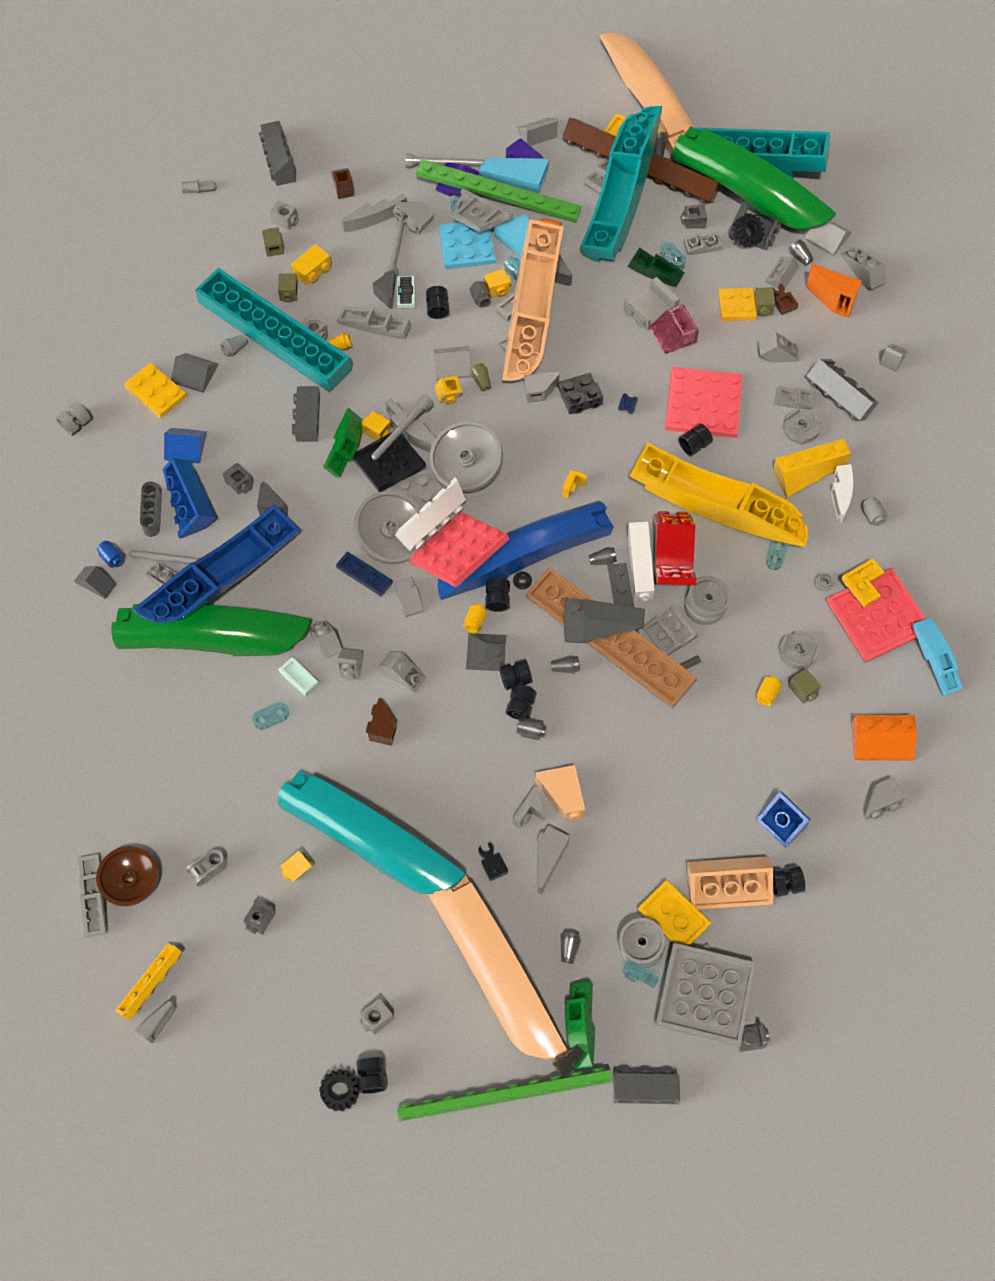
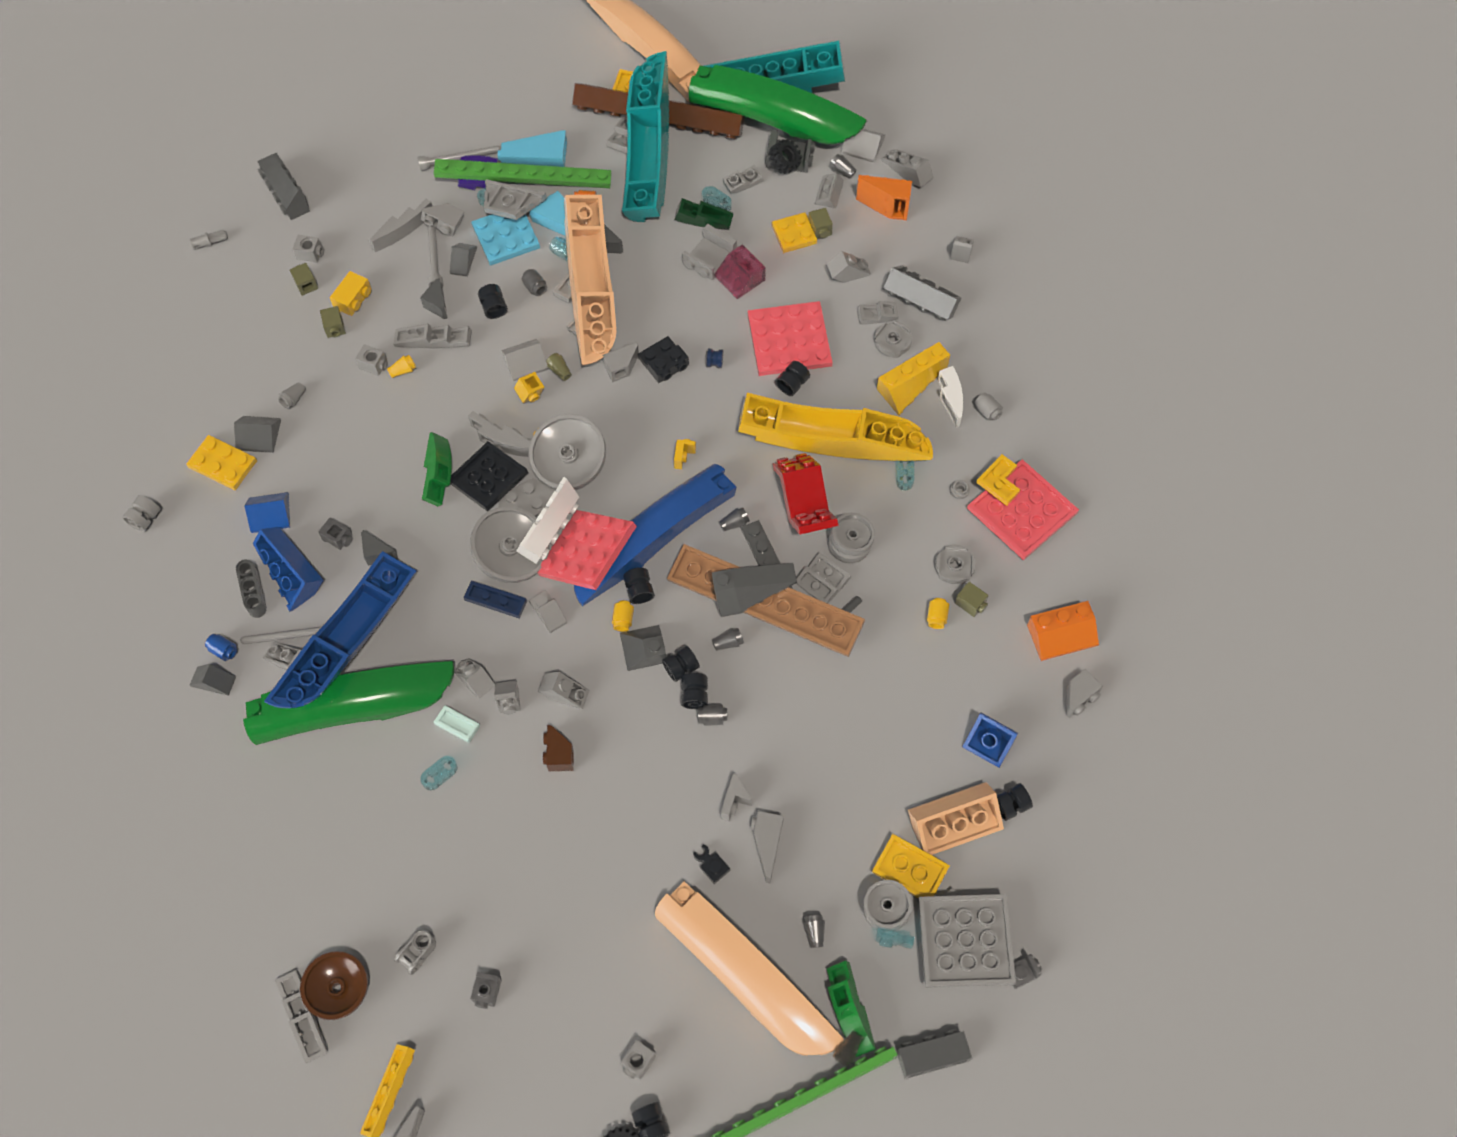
camera: 15 degrees left, 0 degrees up
(274, 329) = (330, 369): teal brick -> none
(296, 866) = (510, 924): yellow brick -> none
(306, 414) = (388, 448): dark grey brick -> none
(342, 182) = (360, 201): reddish brown slope -> none
(368, 835) = (576, 871): teal slope -> none
(376, 426) = (464, 443): yellow brick -> none
(405, 292) = (456, 298): tile -> none
(420, 257) = (462, 258): none -> dark grey slope
(424, 403) = (508, 408): light grey piece -> none
(497, 283) = (548, 267): yellow brick -> none
(521, 149) = (534, 127): dark purple slope -> none
(522, 575) = (659, 559): pearl dark grey plate -> none
(539, 131) = (546, 104): light grey slope -> none
(563, 791) = (762, 770): light nougat slope -> none
(640, 561) = (773, 515): white slope -> none
(660, 144) = (673, 90): flat silver cone -> none
(694, 216) = (727, 154): flat silver brick -> none
(784, 301) = (840, 218): reddish brown plate -> none
(939, 654) = (1094, 534): medium azure slope -> none

